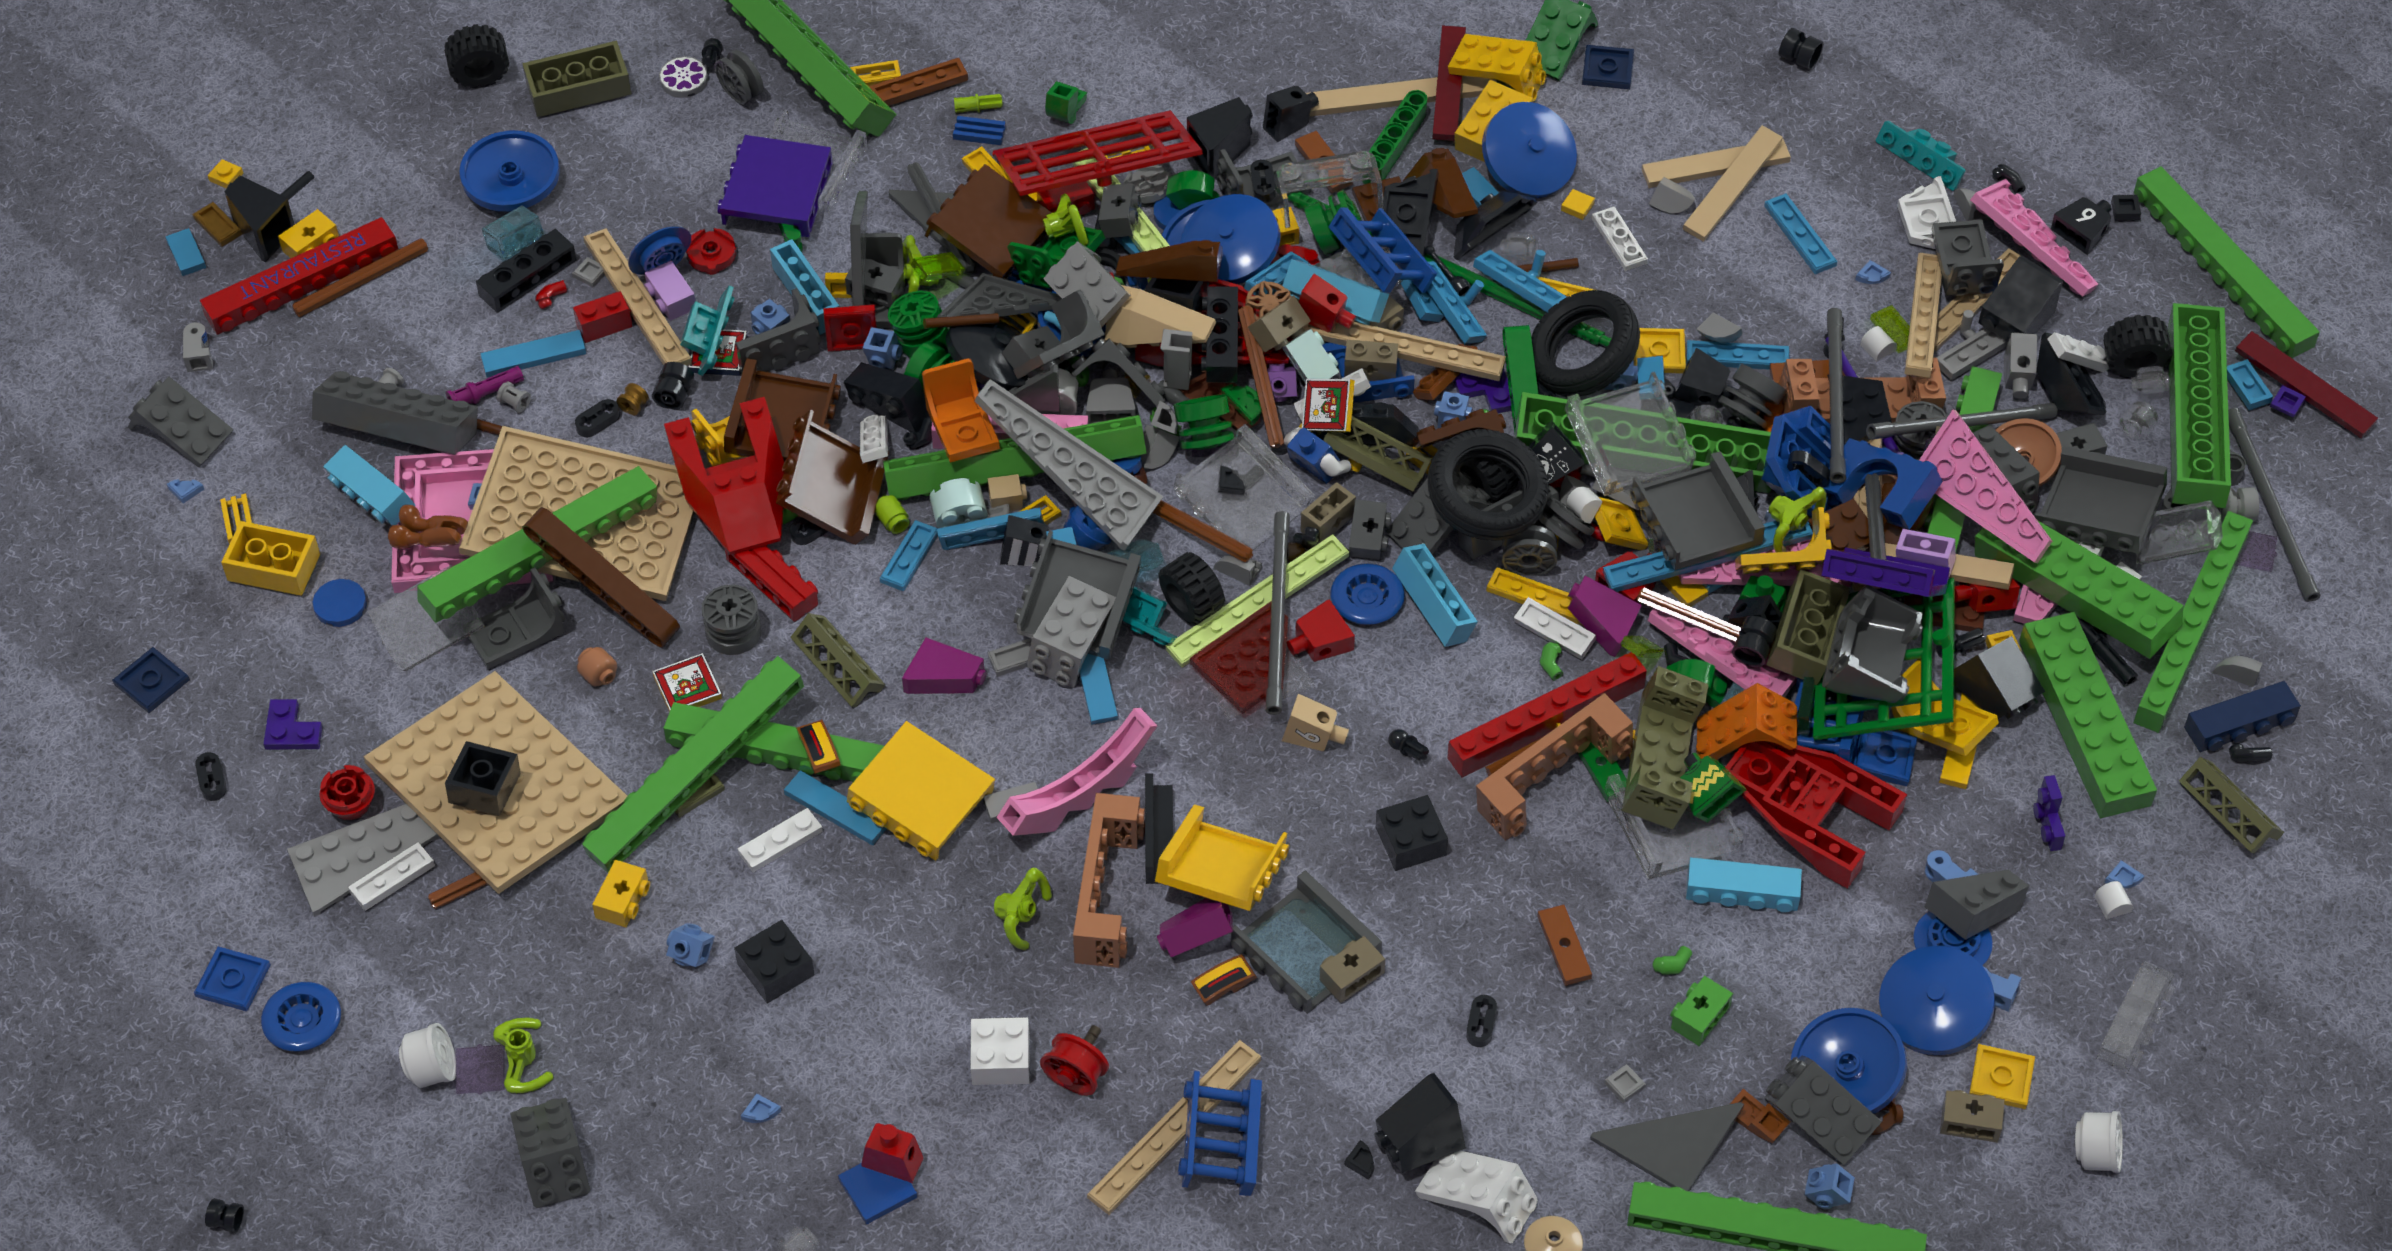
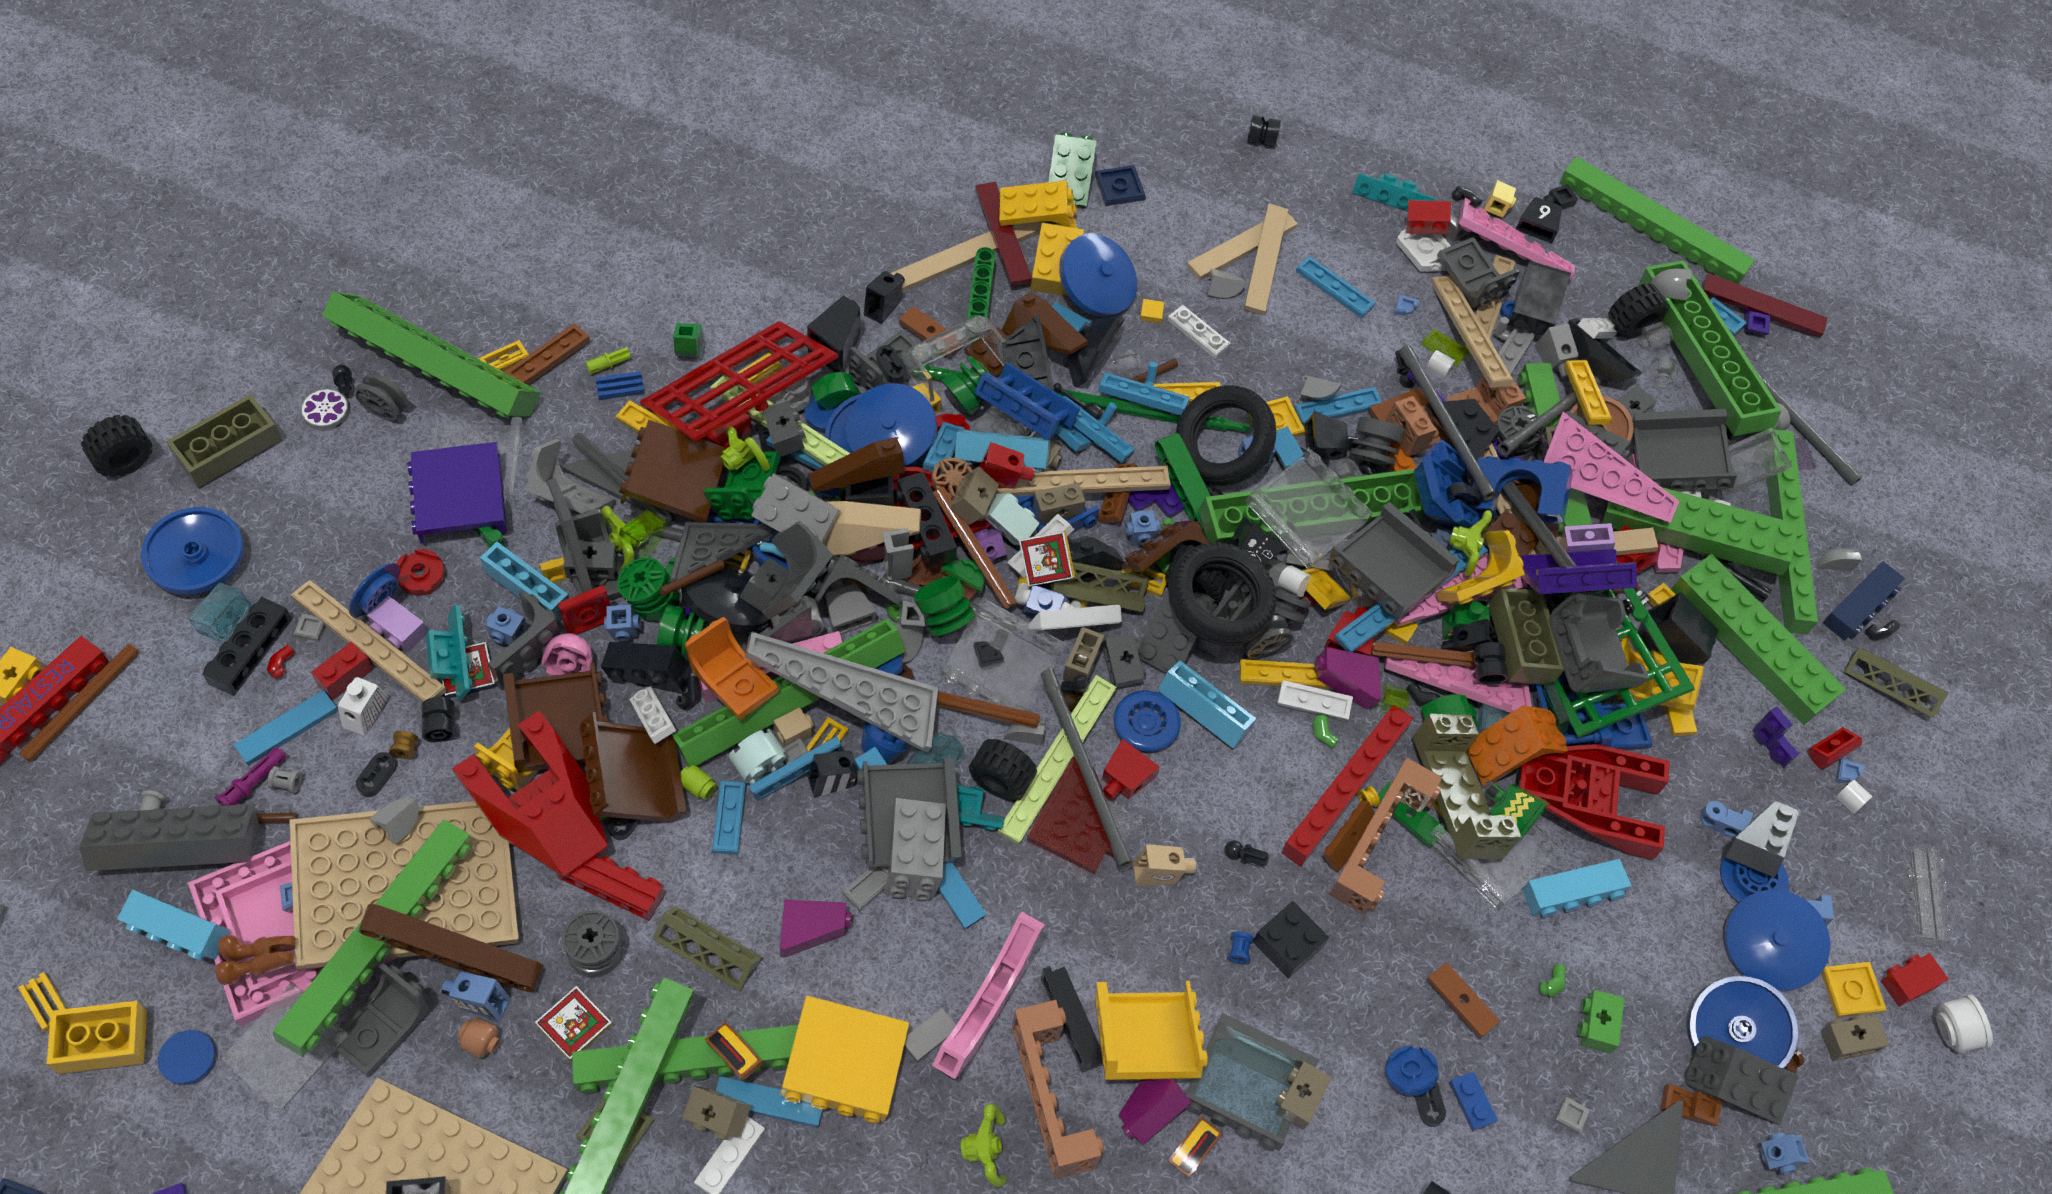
camera: 30 degrees left, 5 degrees up
(598, 455) = (397, 818): none -> light grey brick
(607, 351) = (361, 701): none -> white torso
(611, 630) = (477, 995): none -> medium blue torso
(781, 793) = (716, 1112): none -> dark tan brick
(815, 359) = (567, 655): none -> bright pink cylinder
(871, 176) = (546, 467): none -> light grey bracket
(1335, 471) = (1076, 617): none -> white slope
(1367, 821) = (1240, 947): none -> blue bush
(1475, 986) = (1412, 1070): none -> blue tile
(1527, 1037) = (1473, 1101): none -> blue plate
(1939, 185) = (1428, 217): none -> red brick
(2022, 411) = (1587, 392): none -> yellow tile
(2046, 185) = (1500, 199): none -> light yellow brick
(2073, 1086) = (1913, 979): none -> red brick
(2117, 847) = (1834, 747): none -> red brick
(2189, 326) = (1673, 283): none -> light grey brick

